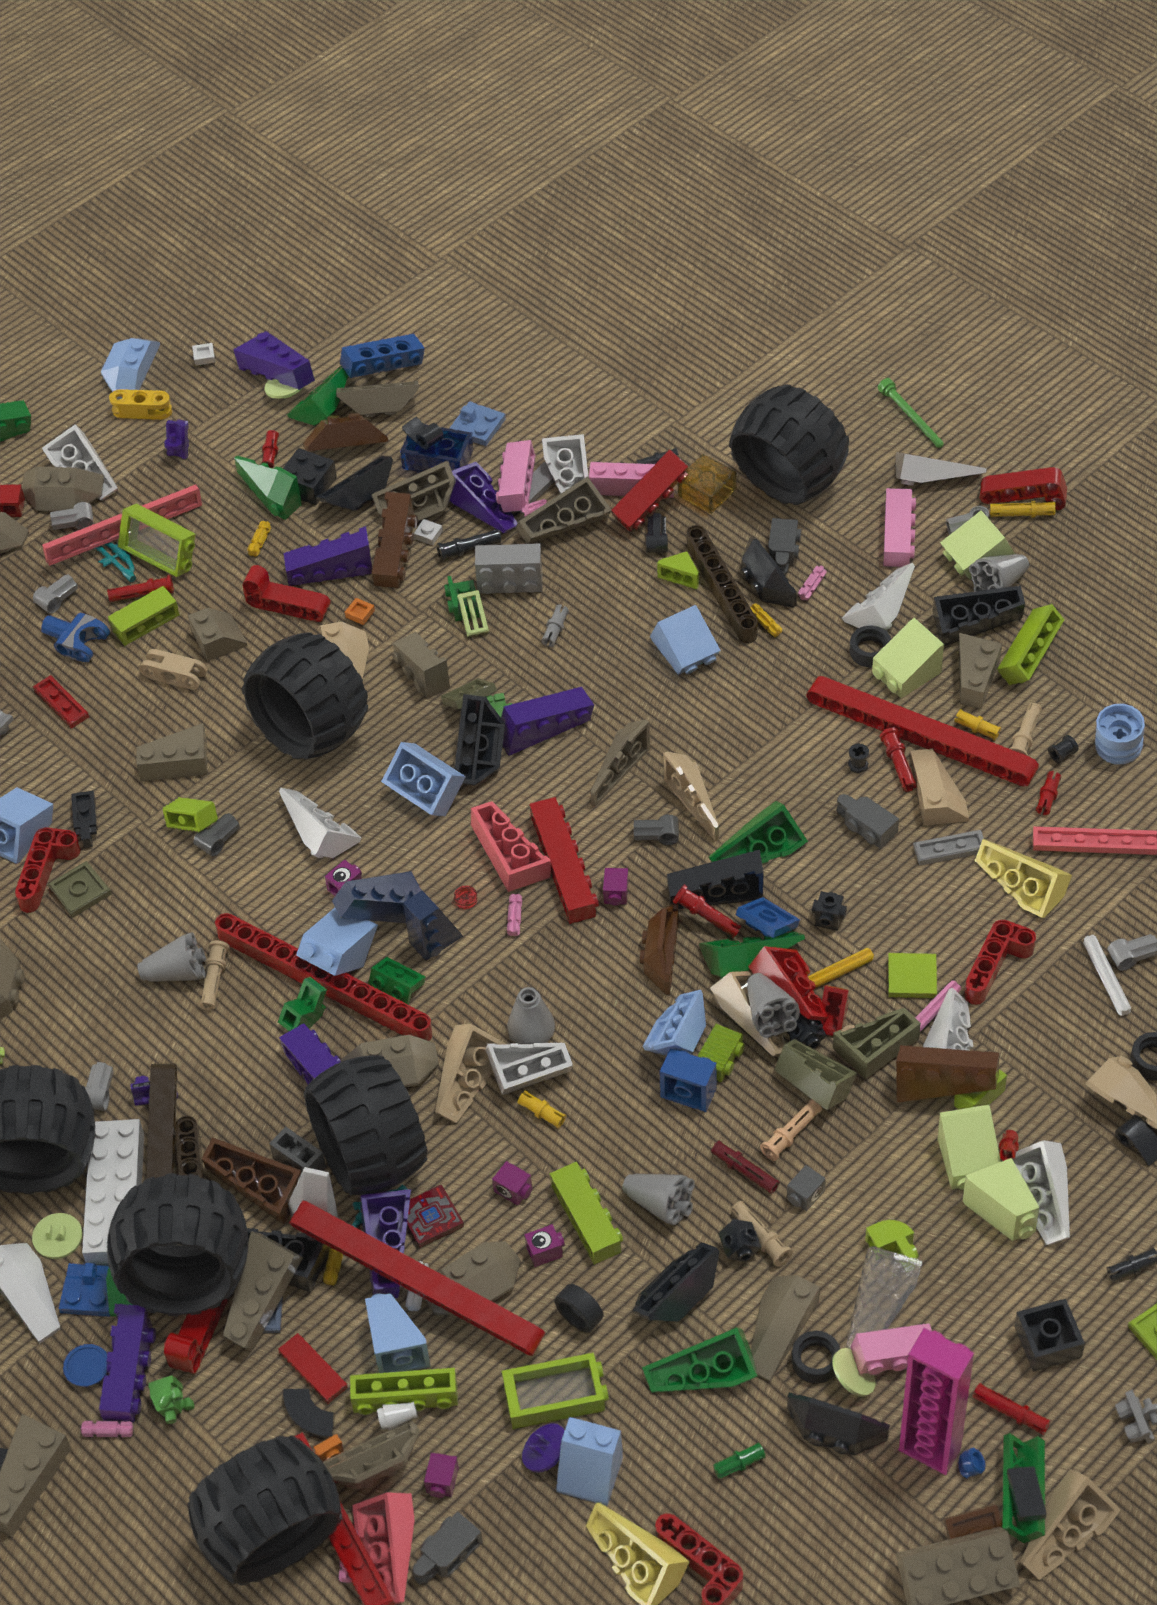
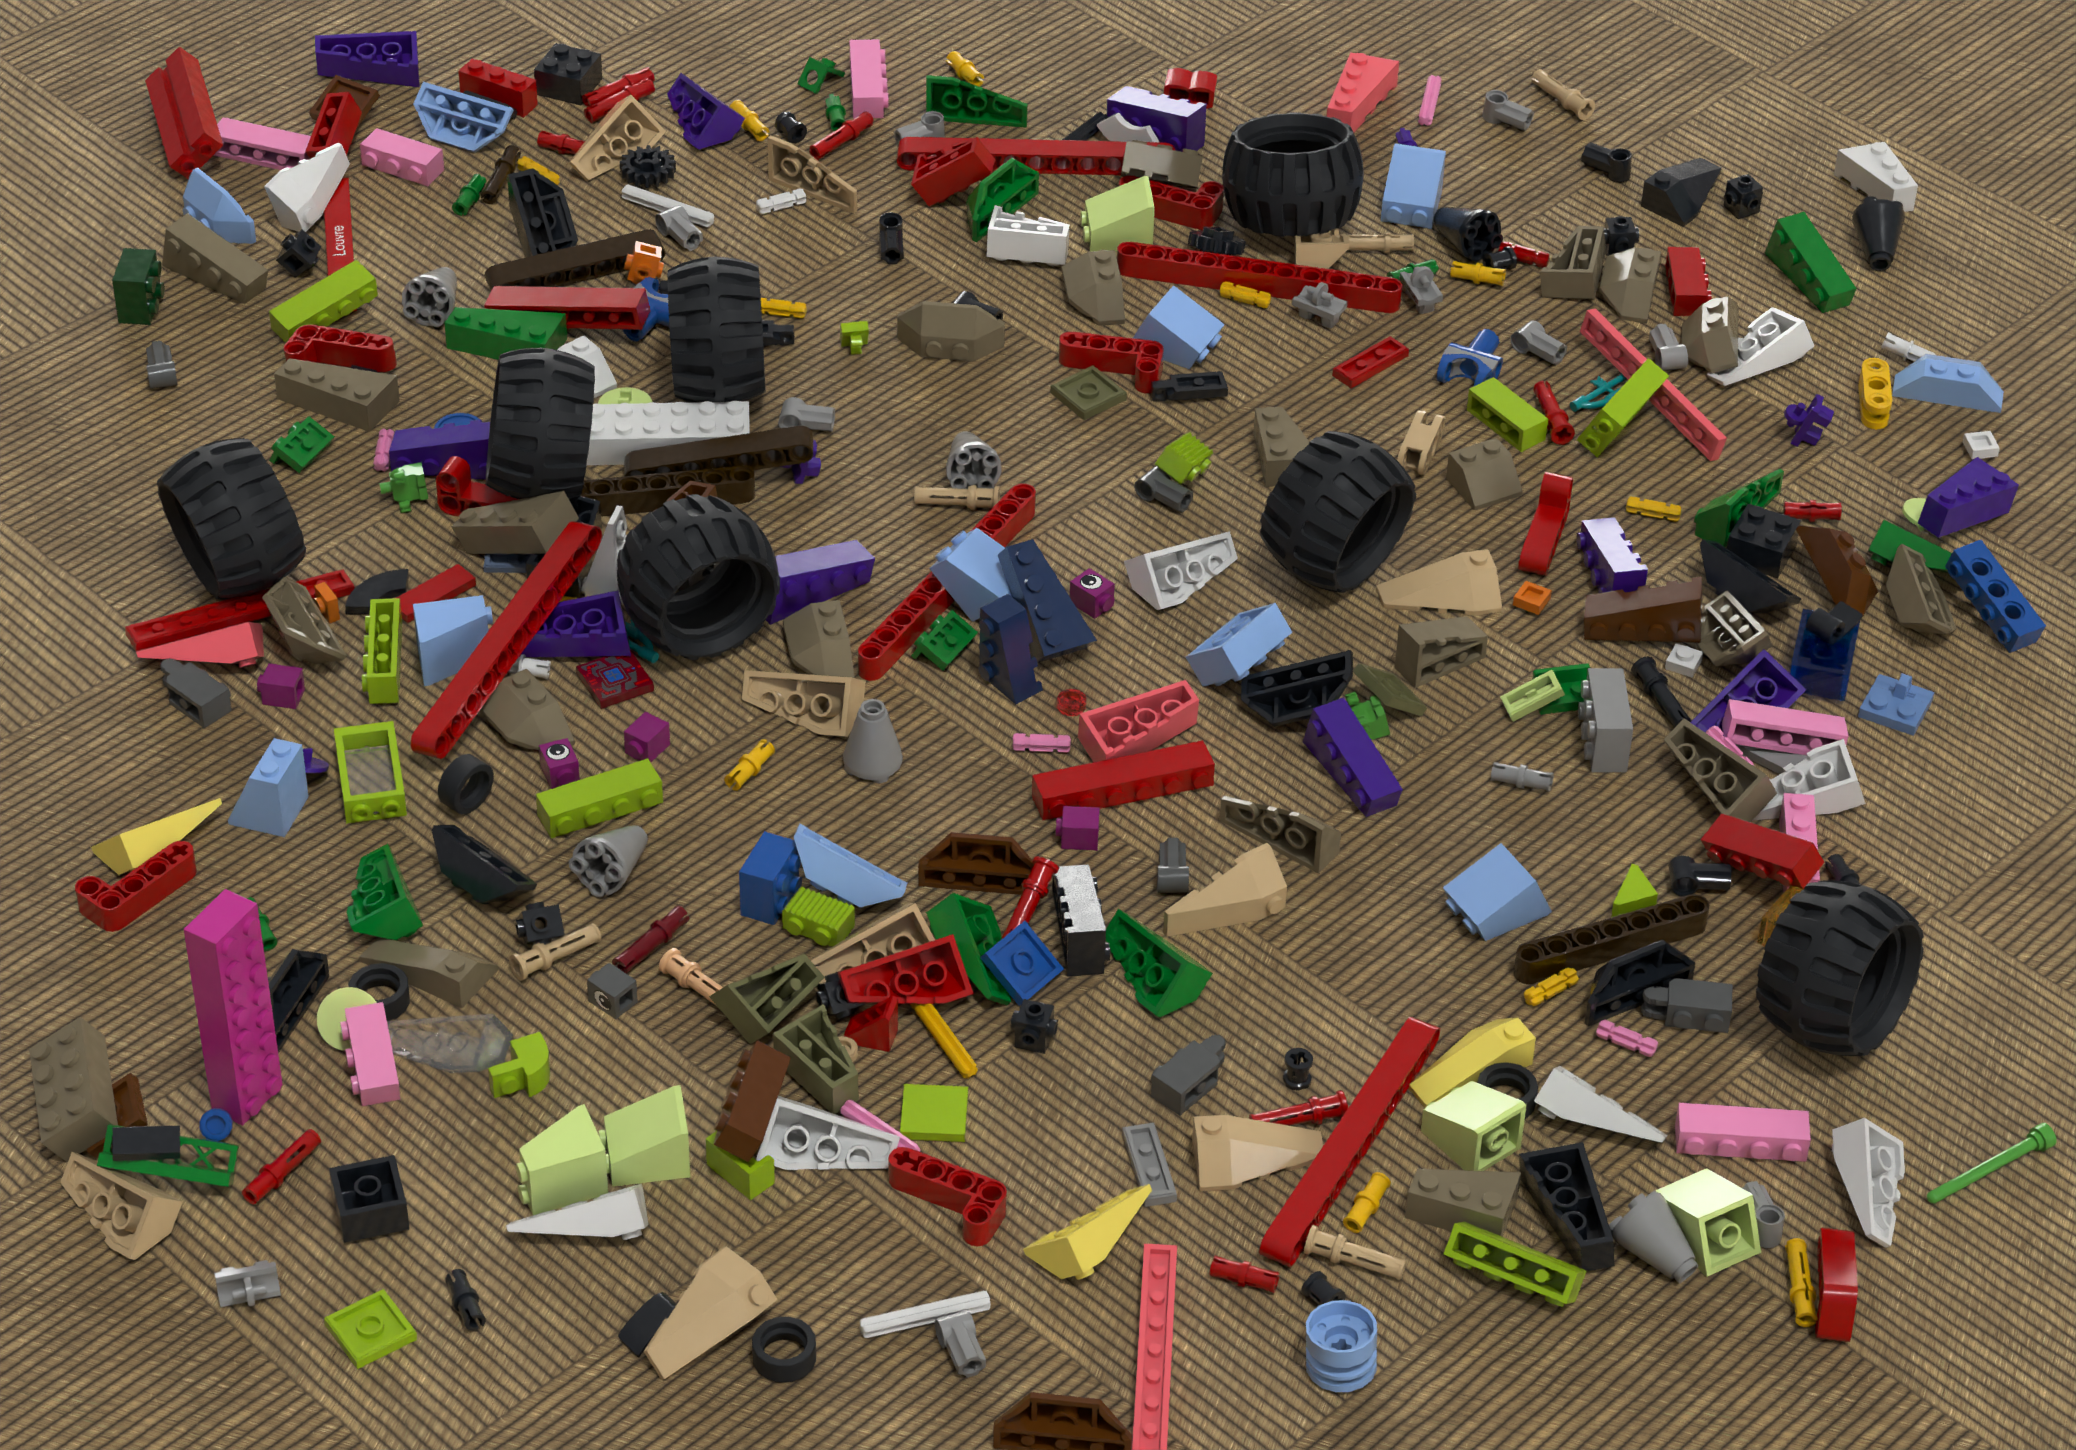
camera: 85 degrees right, 10 degrees down
(89, 384) = (1906, 349): none -> white axle
(97, 1500) = (302, 444): none -> green bracket
(306, 1008) = (899, 565): green brick -> none
(396, 1414) = (351, 638): white cone -> none
(527, 1064) = (805, 738): white wedge -> none
(771, 1007) = (863, 937): light grey cone -> none
(834, 657) = (1489, 1044): none -> light yellow wedge
(1008, 1145) = (631, 1165): red pin -> none

